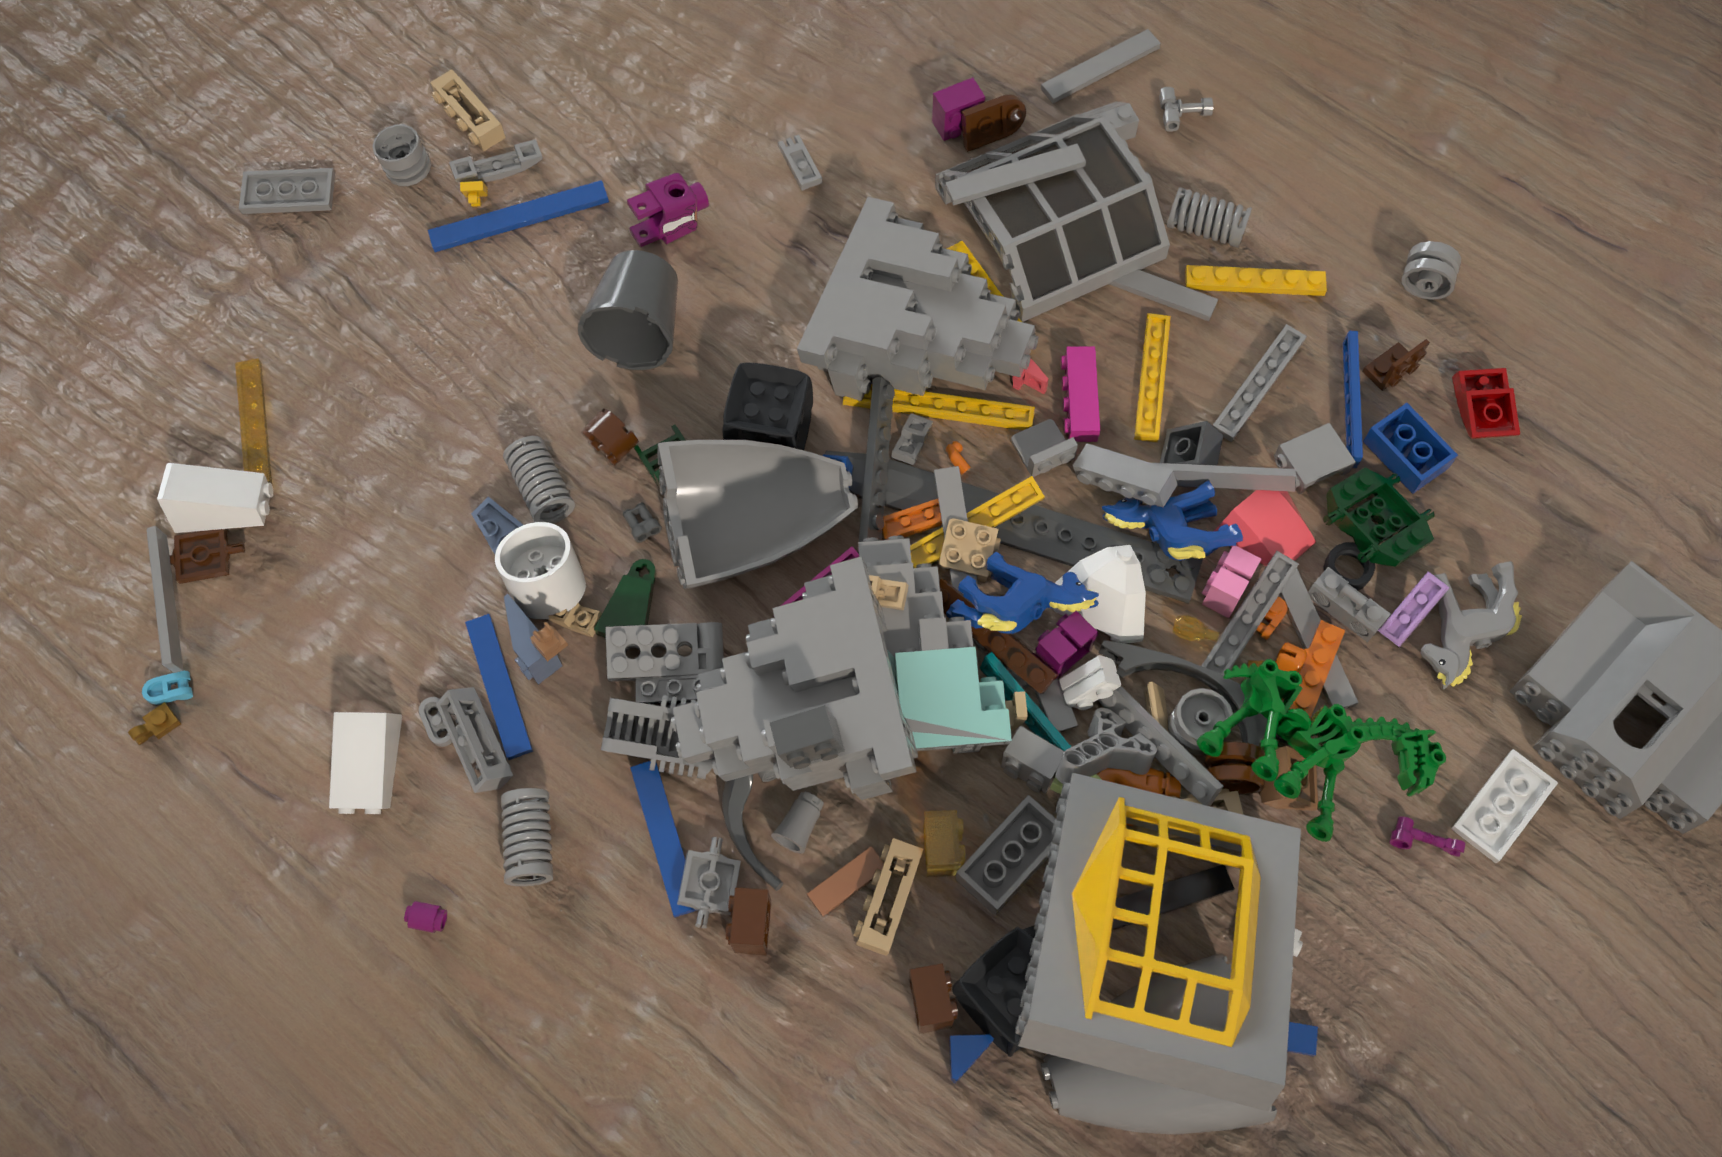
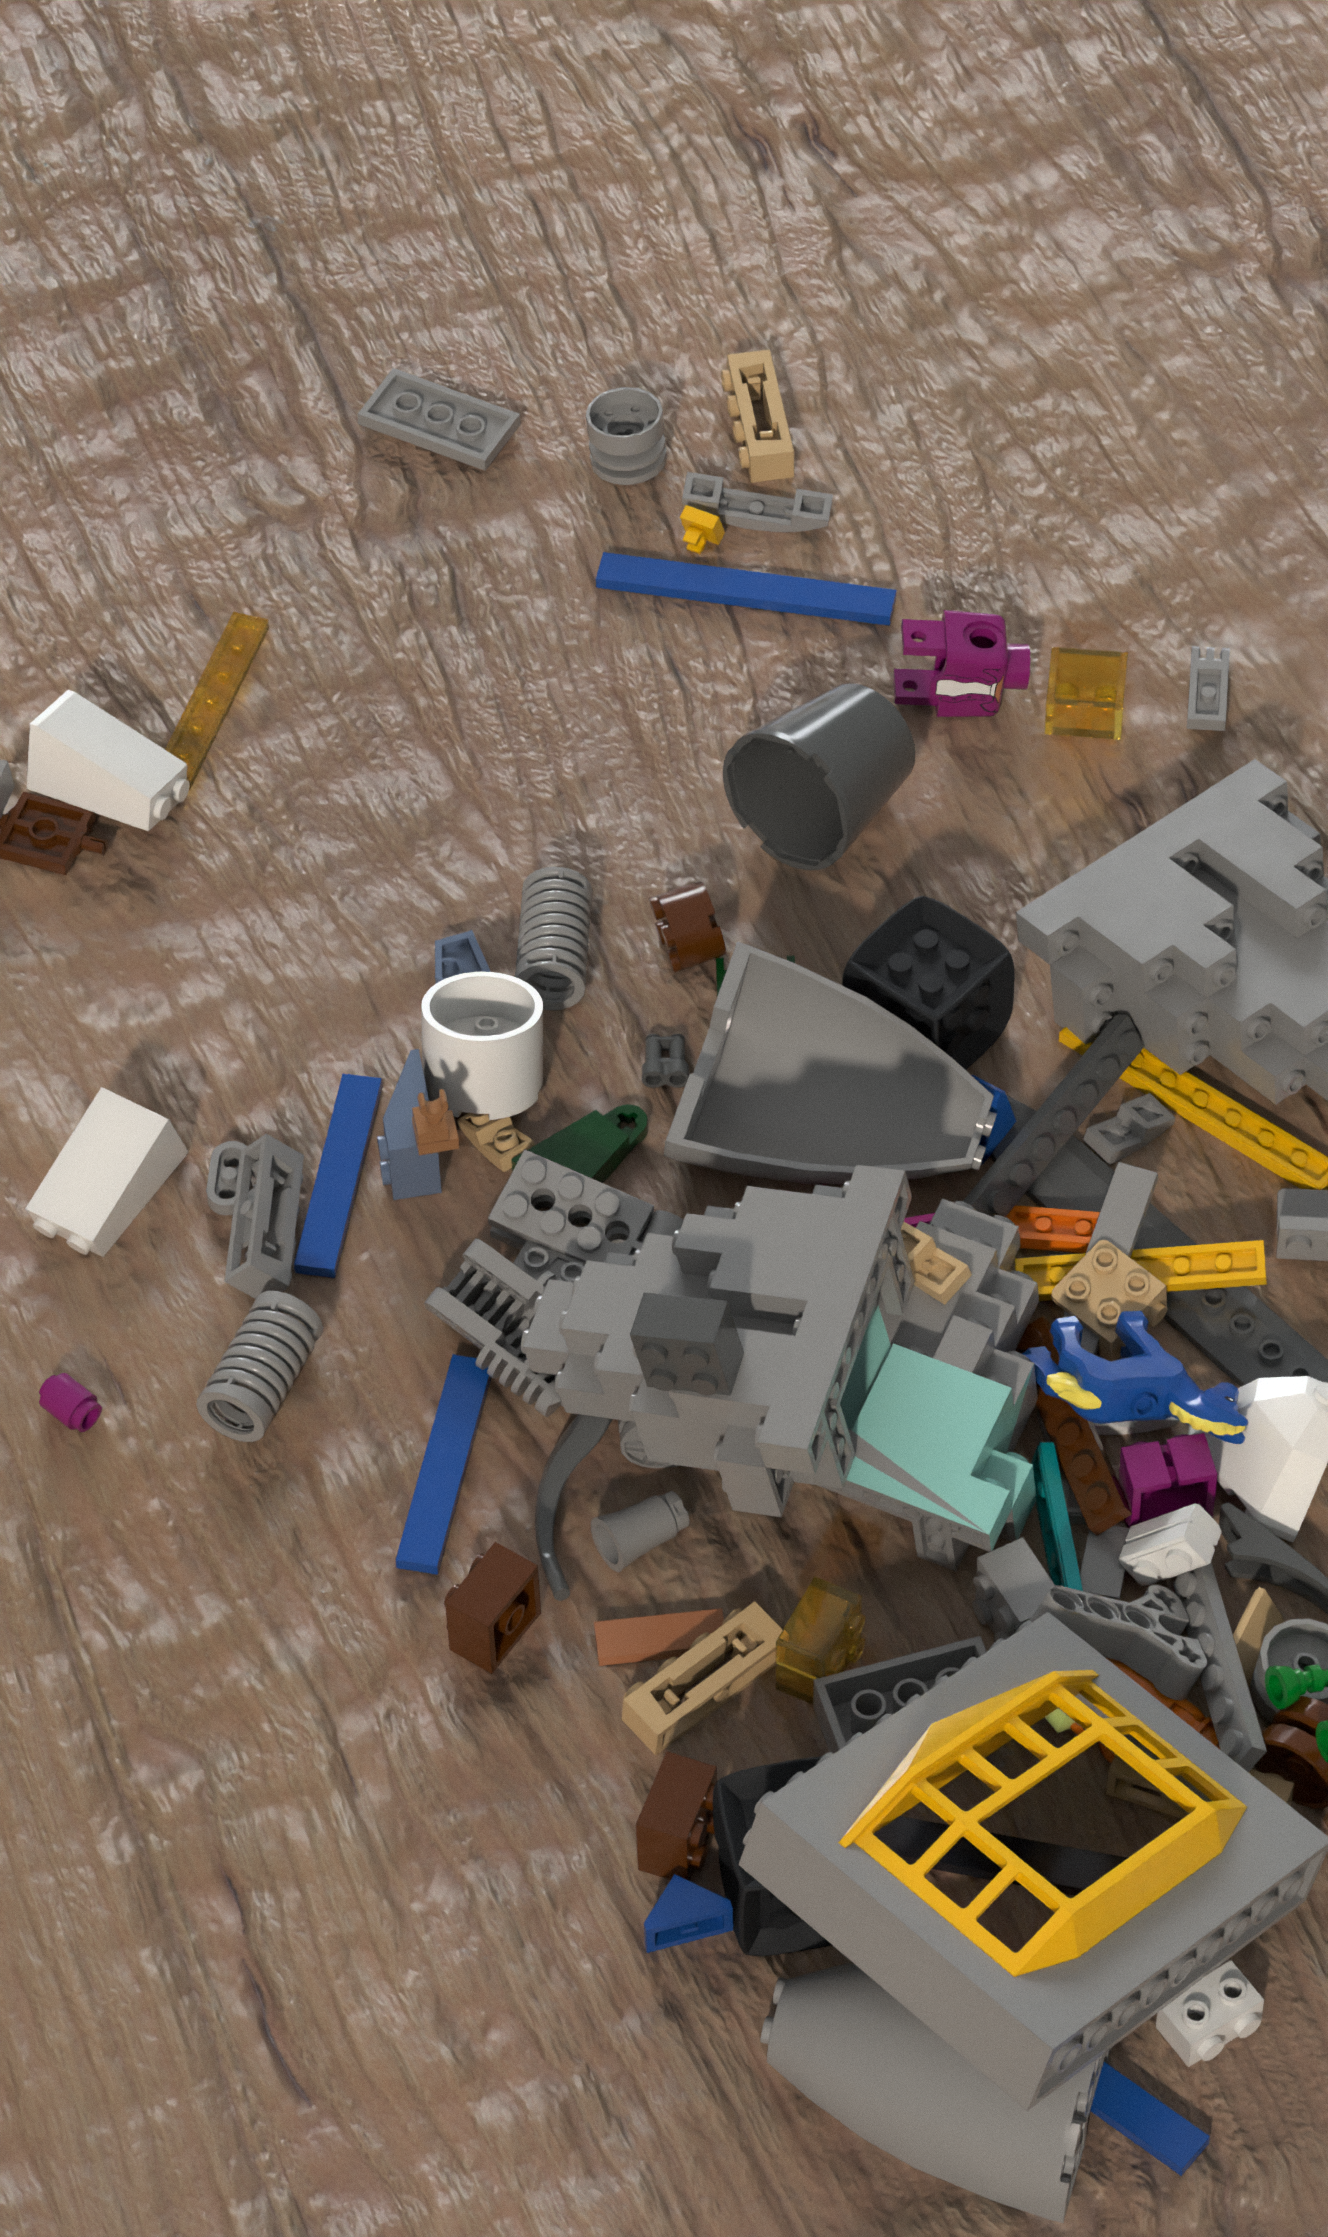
camera: 30 degrees right, 15 degrees down
(708, 882) = (462, 1531): light grey plate -> none
(741, 195) = (1086, 693): none -> clear yellow piece
(953, 451) = (1176, 1181): orange arm -> none
(1017, 710) = (1035, 1523): tan slope -> none

